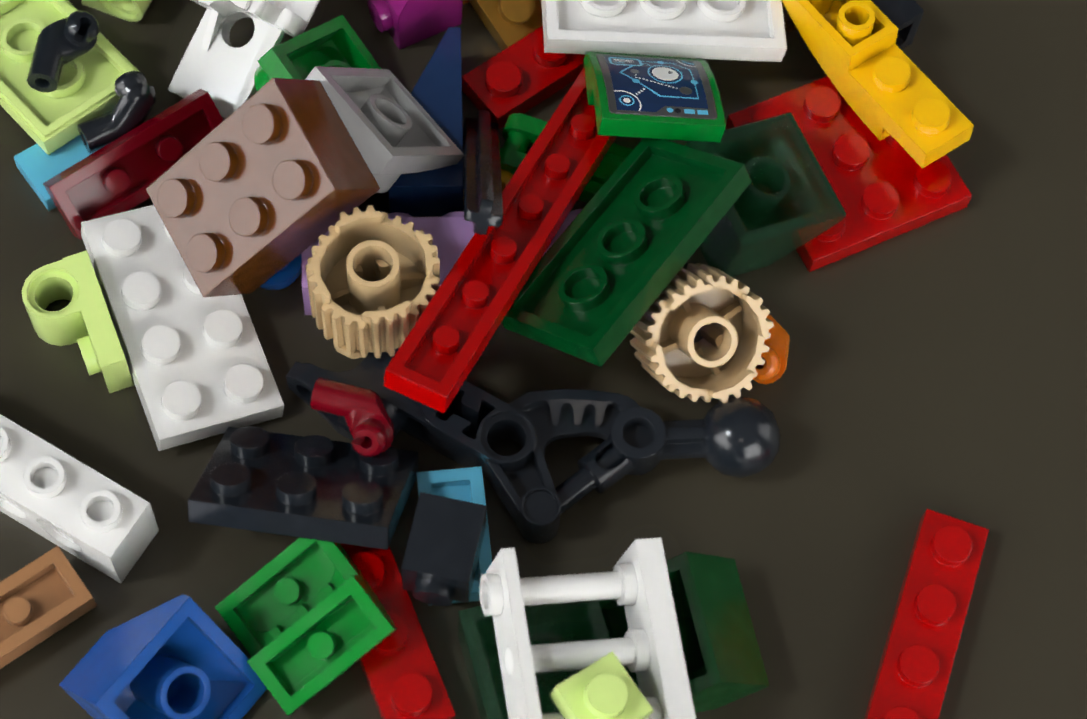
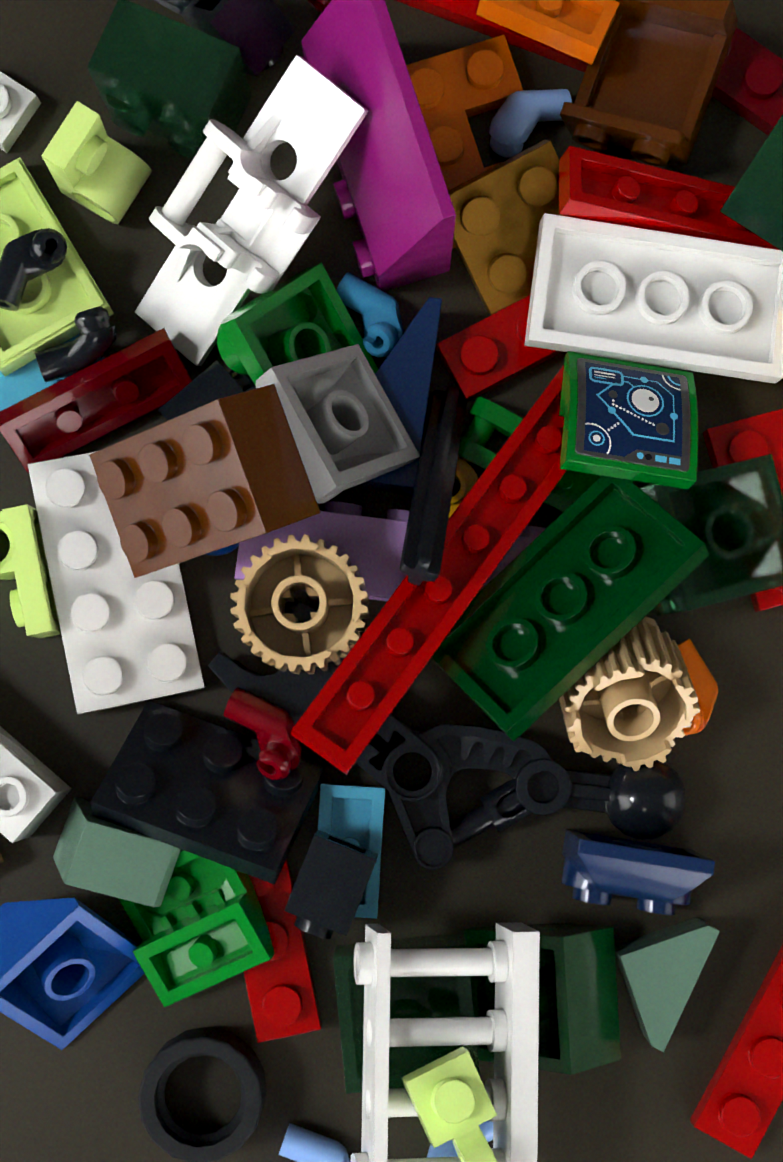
camera: 20 degrees right, 20 degrees up
(216, 564) = (113, 858): none -> sand green slope
(396, 55) = (378, 313): none -> dark azure arm
(741, 495) = (632, 868): none -> dark blue slope
(789, 602) = (662, 974): none -> sand green slope

